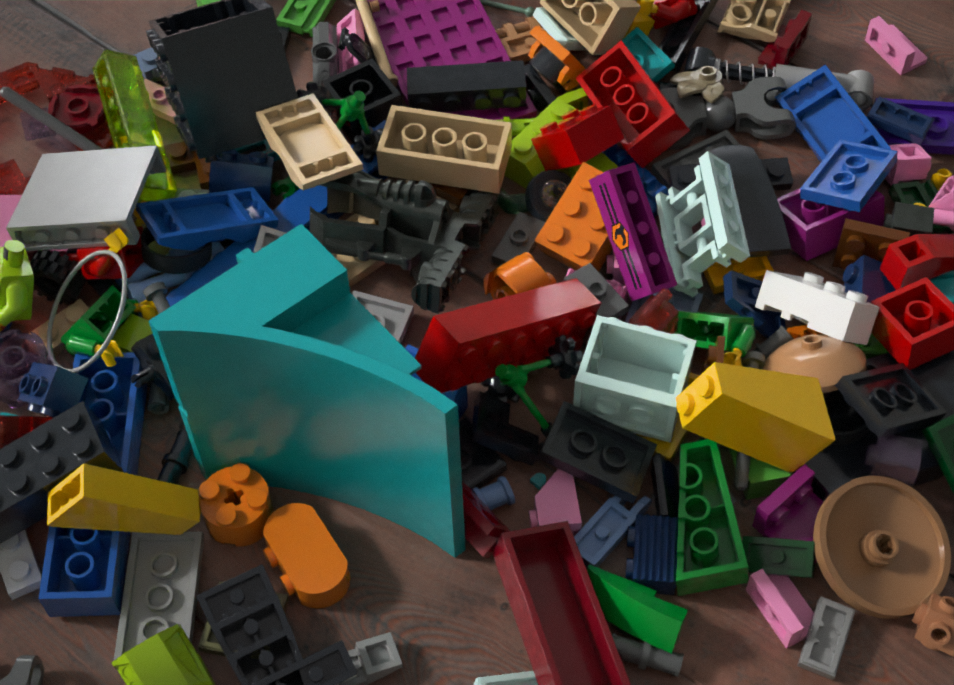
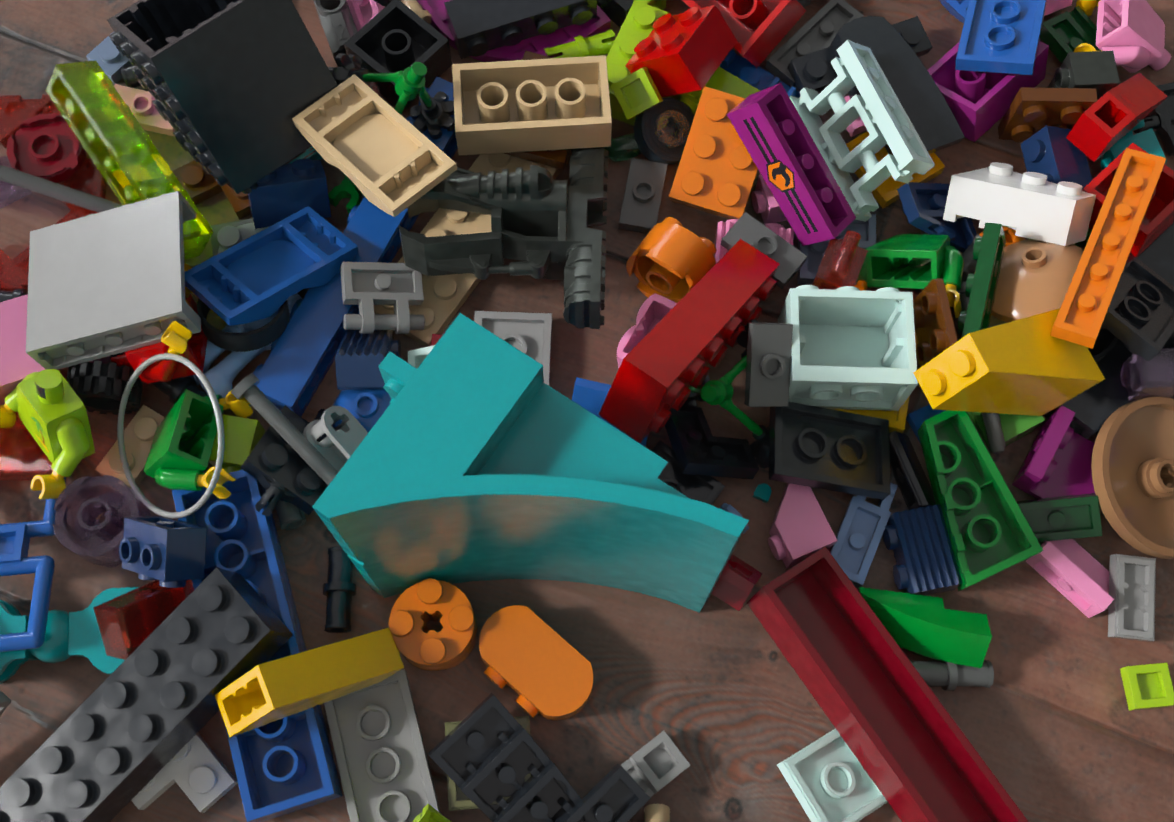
camera: 20 degrees left, 15 degrees up
(532, 159) = (636, 93): none -> lime plate
(561, 367) = (768, 364): none -> dark grey plate
(770, 339) = (982, 285): none -> dark green plate
(867, 340) = (1108, 248): none -> orange plate

